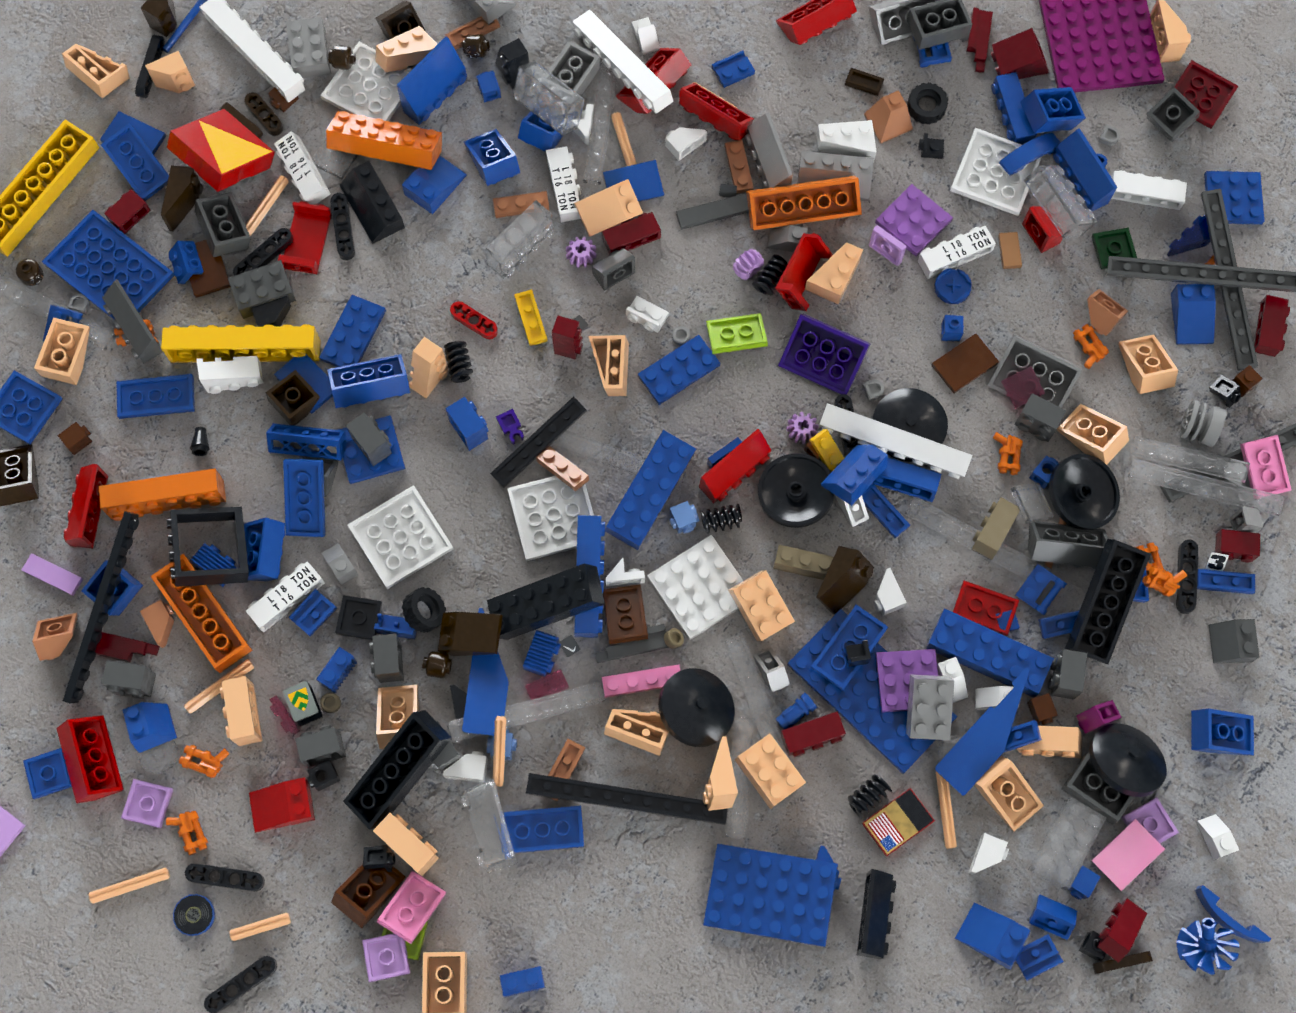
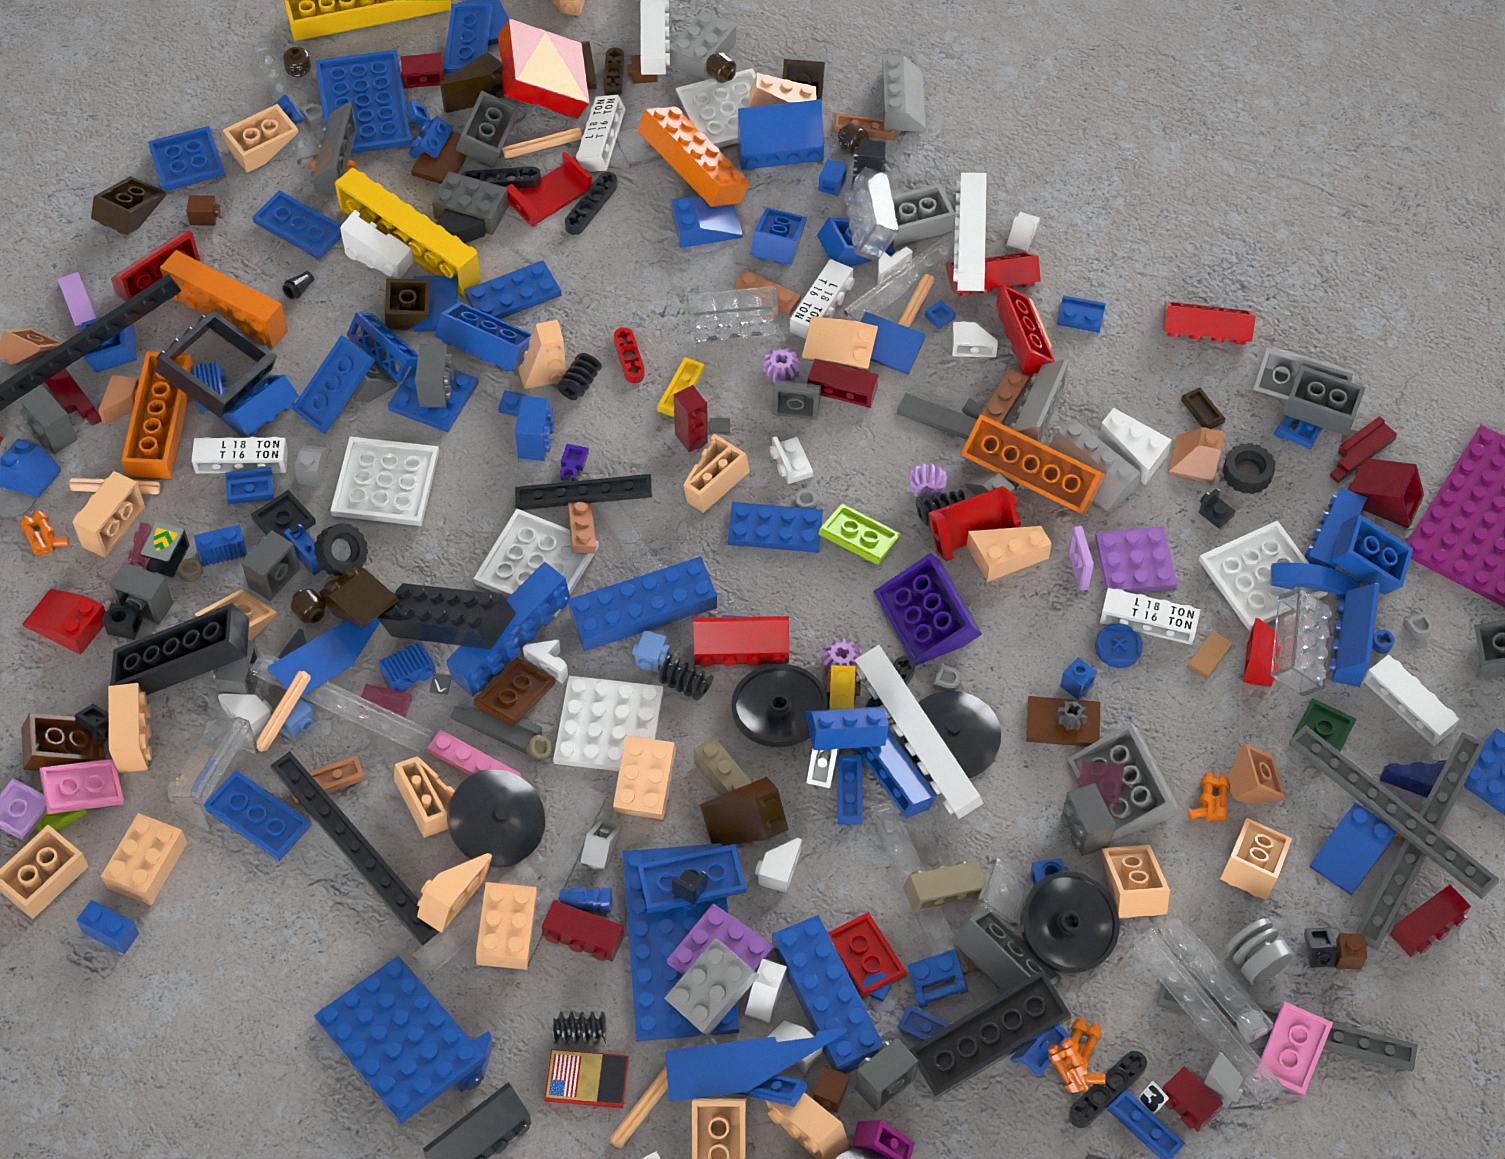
camera: 40 degrees right, 15 degrees down
(157, 248) = (417, 113): none -> blue plate
(371, 203) = (635, 200): black slope -> none
(429, 415) = (510, 403): none -> blue plate
(501, 919) = (144, 859): none -> light nougat brick
(647, 137) = (940, 314): none -> blue plate
(972, 362) = (1071, 715): none -> dark grey gear
(1011, 447) = (1036, 830): orange piece -> none

